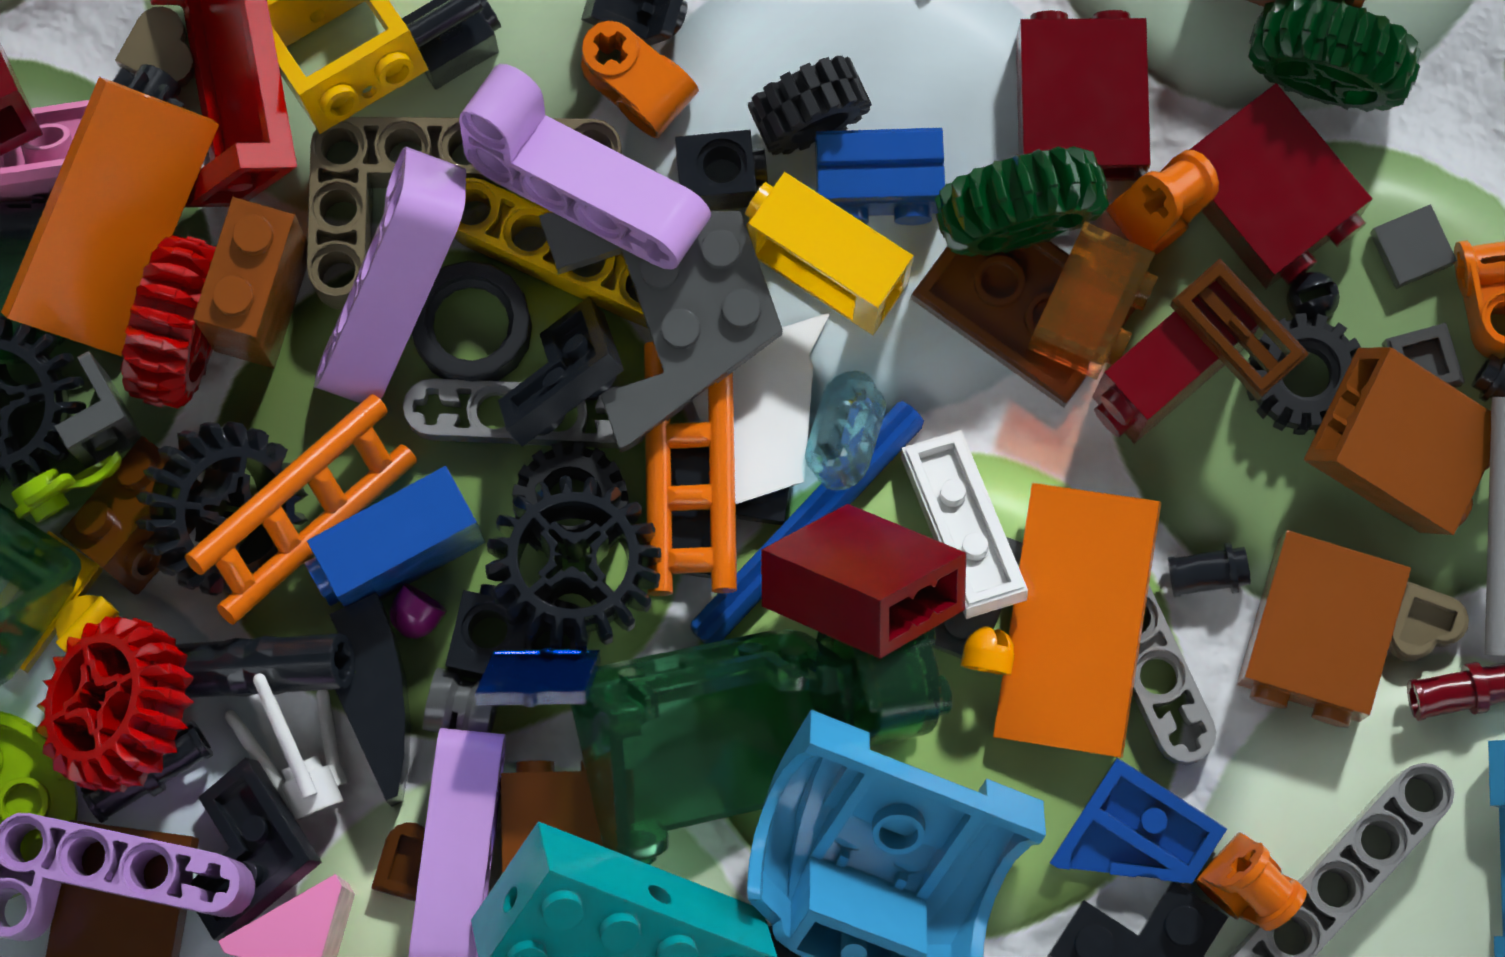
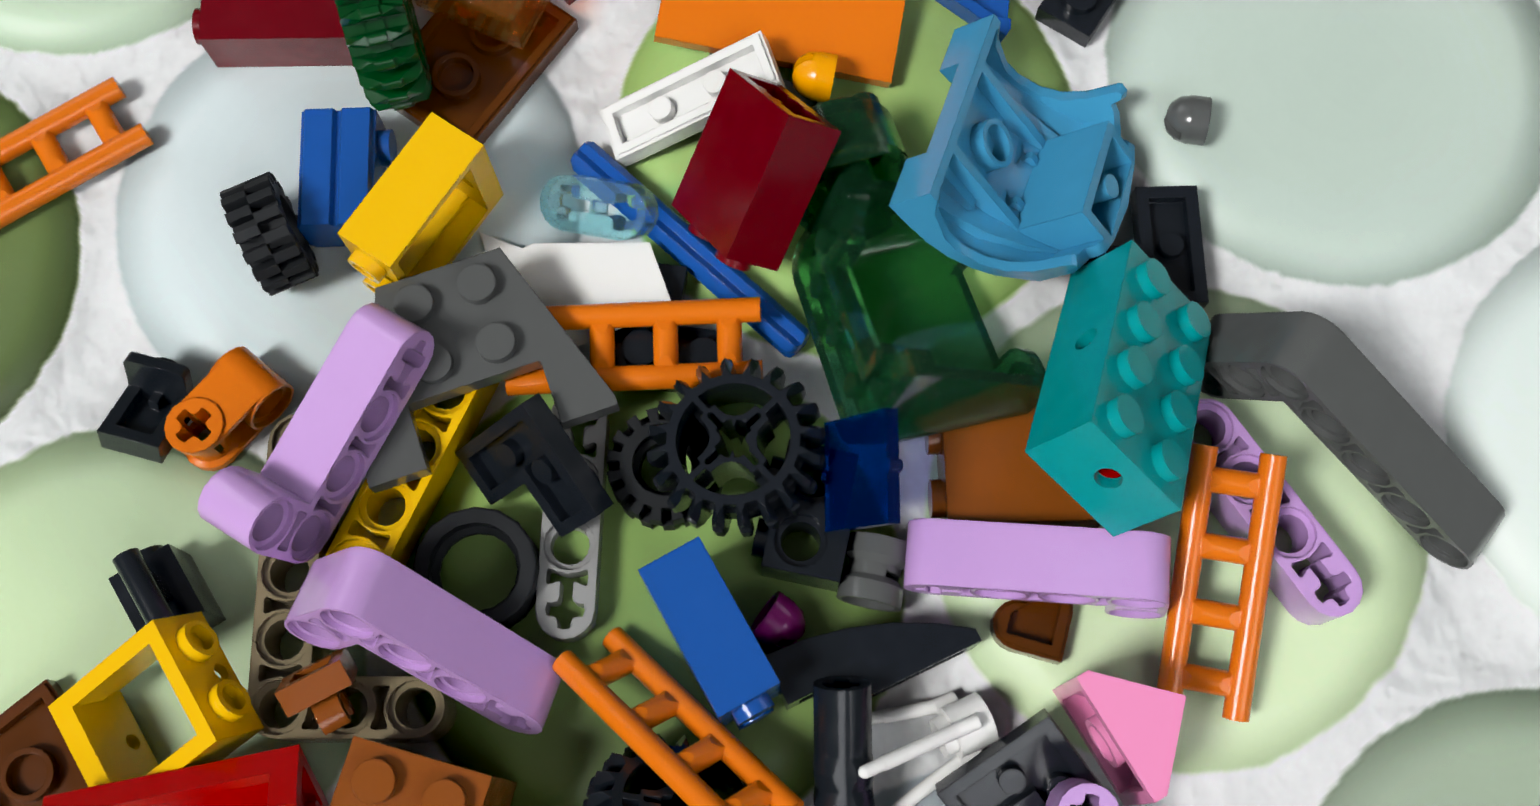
camera: 90 degrees left, 5 degrees down
(349, 184) = (321, 688): none -> dark orange tile
(700, 150) = (310, 308): black brick -> none

